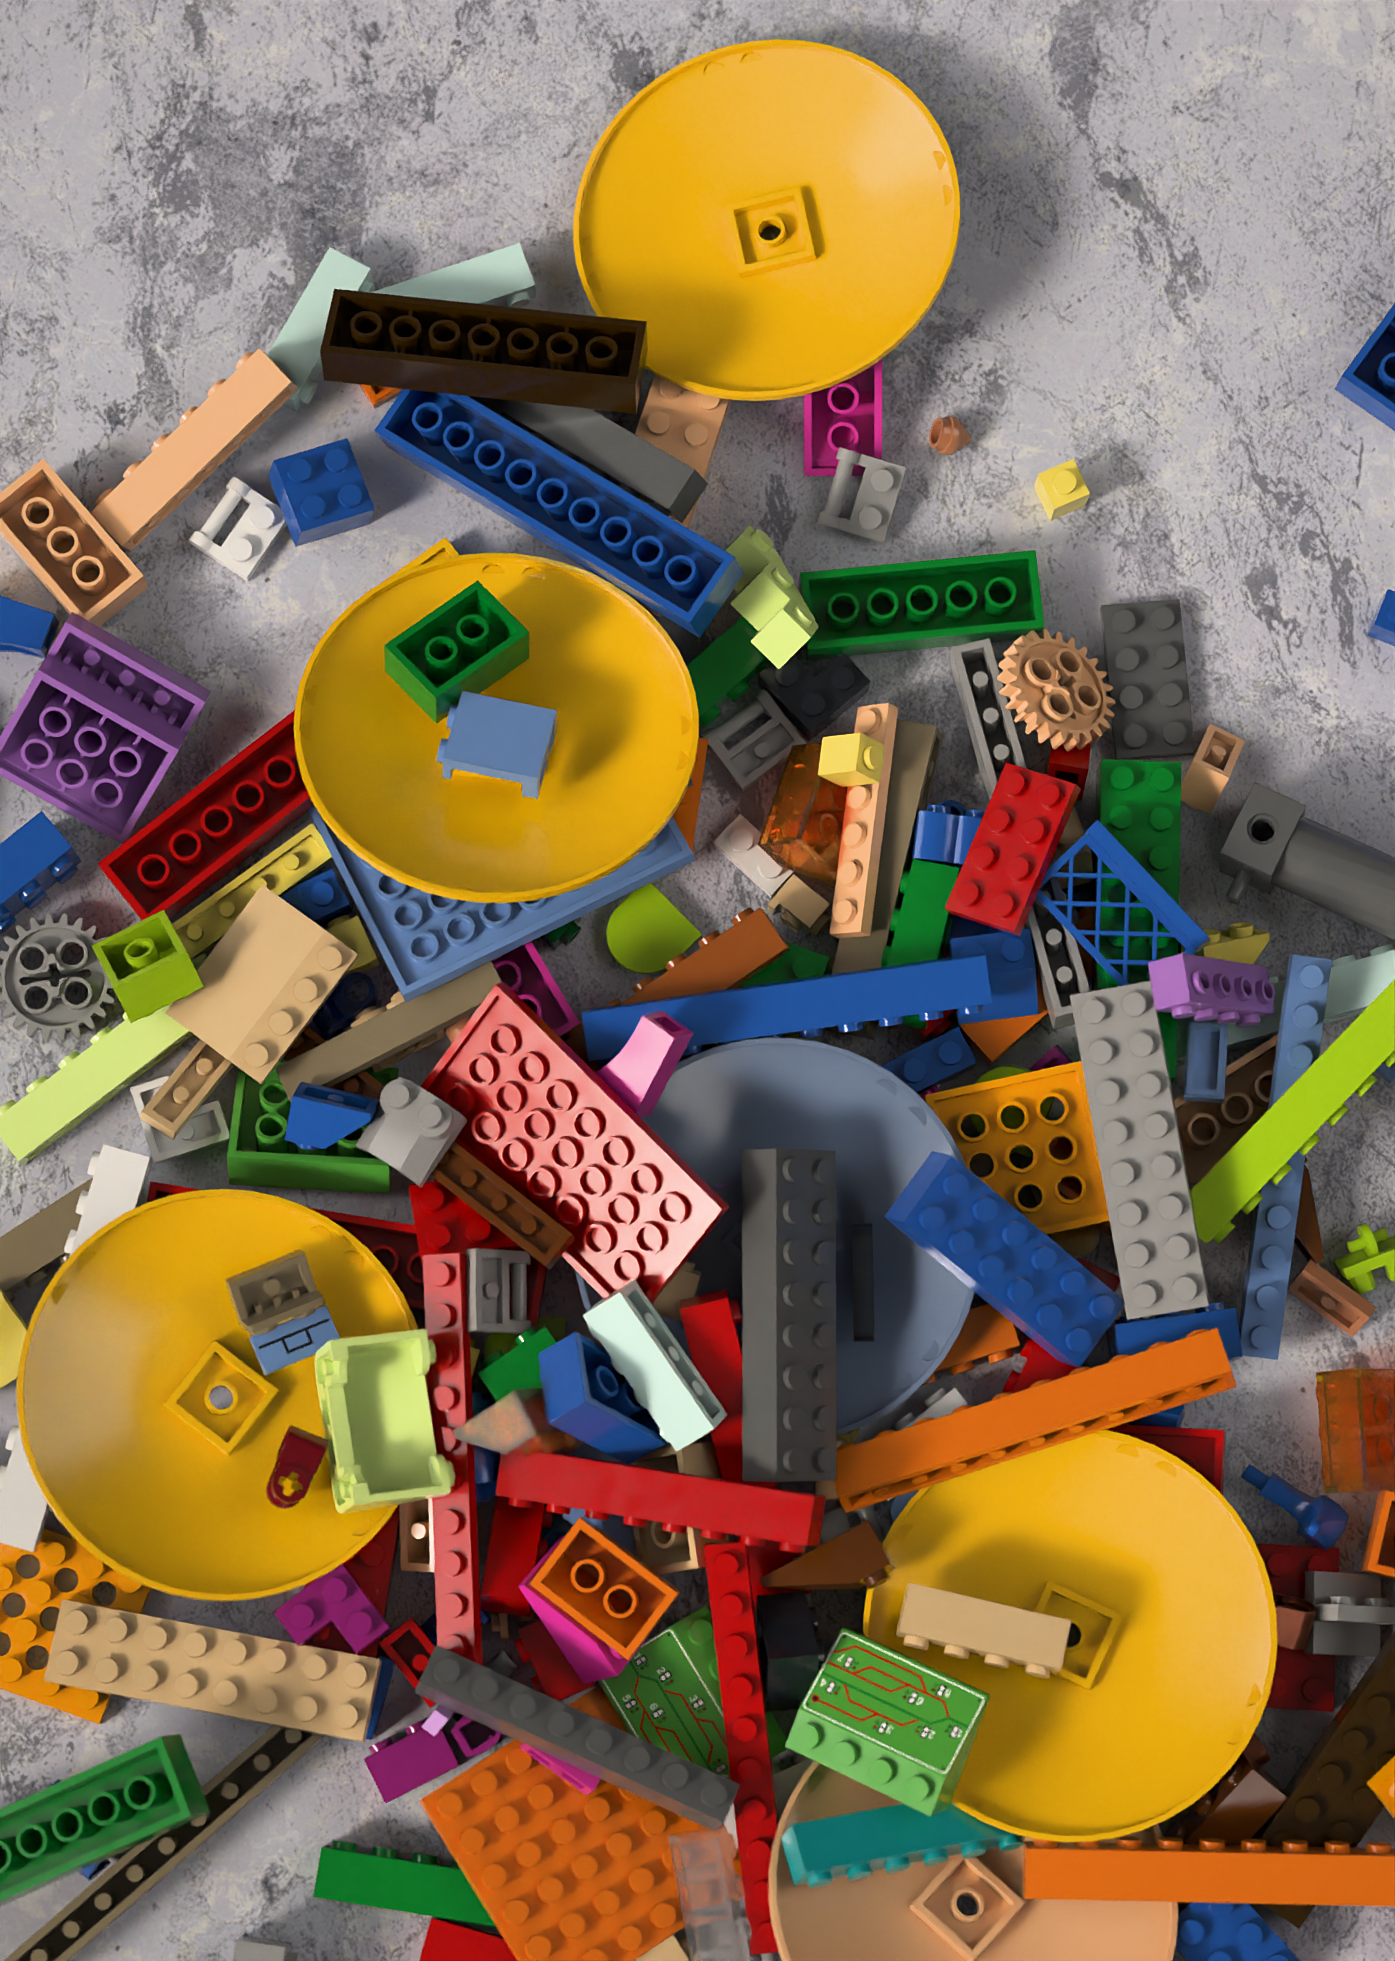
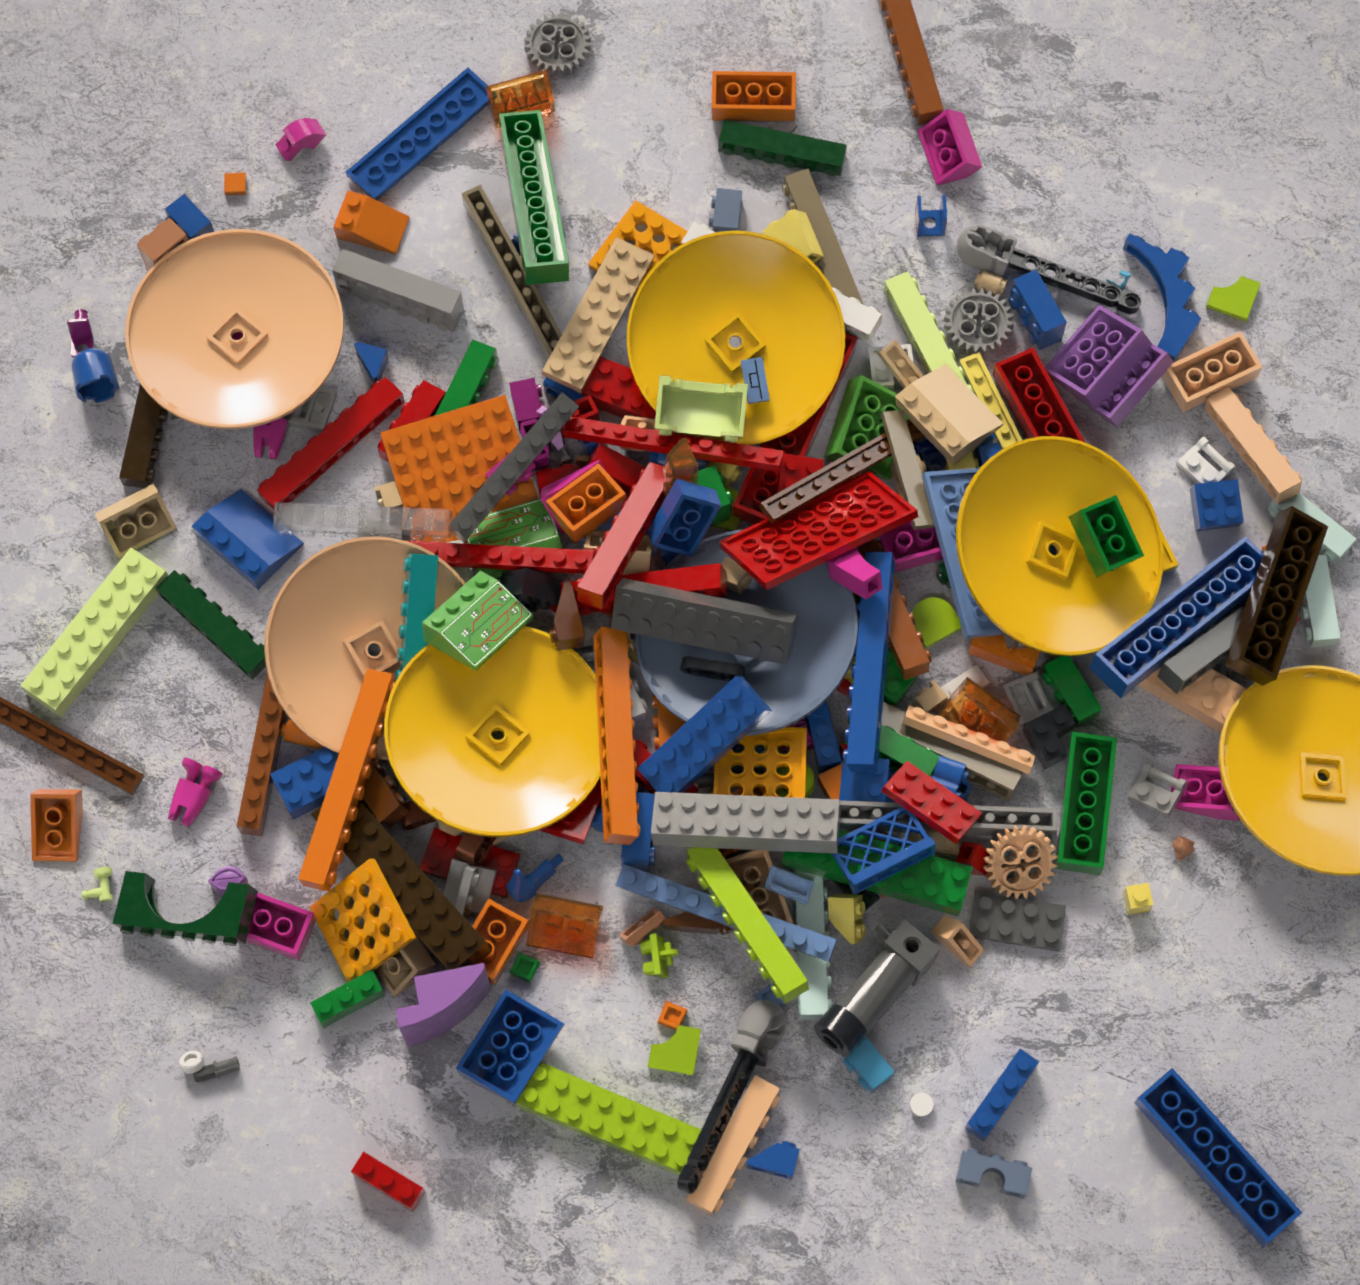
camera: 110 degrees right, 10 degrees down
(147, 966) = (971, 356): lime brick -> none
(274, 1293) = (781, 373): dark tan bracket -> none
(297, 1461) = (692, 366): dark red piece -> none
(326, 1115) = (871, 423): blue slope -> none
(338, 1600) = (614, 375): magenta brick -> none
(411, 1130) = (851, 461): light grey slope -> none
(489, 1291) = (754, 479): light grey plate -> none
(499, 740) = (1049, 541): medium blue panel -> none
(654, 1365) = (694, 545): light aqua brick -> none
(770, 598) = (1106, 718): yellowish green brick -> none
(851, 759) = (1003, 735): light yellow brick -> none
(983, 1629) = (512, 681): tan brick -> none
(1211, 989) = (826, 884): medium lavender brick -> none

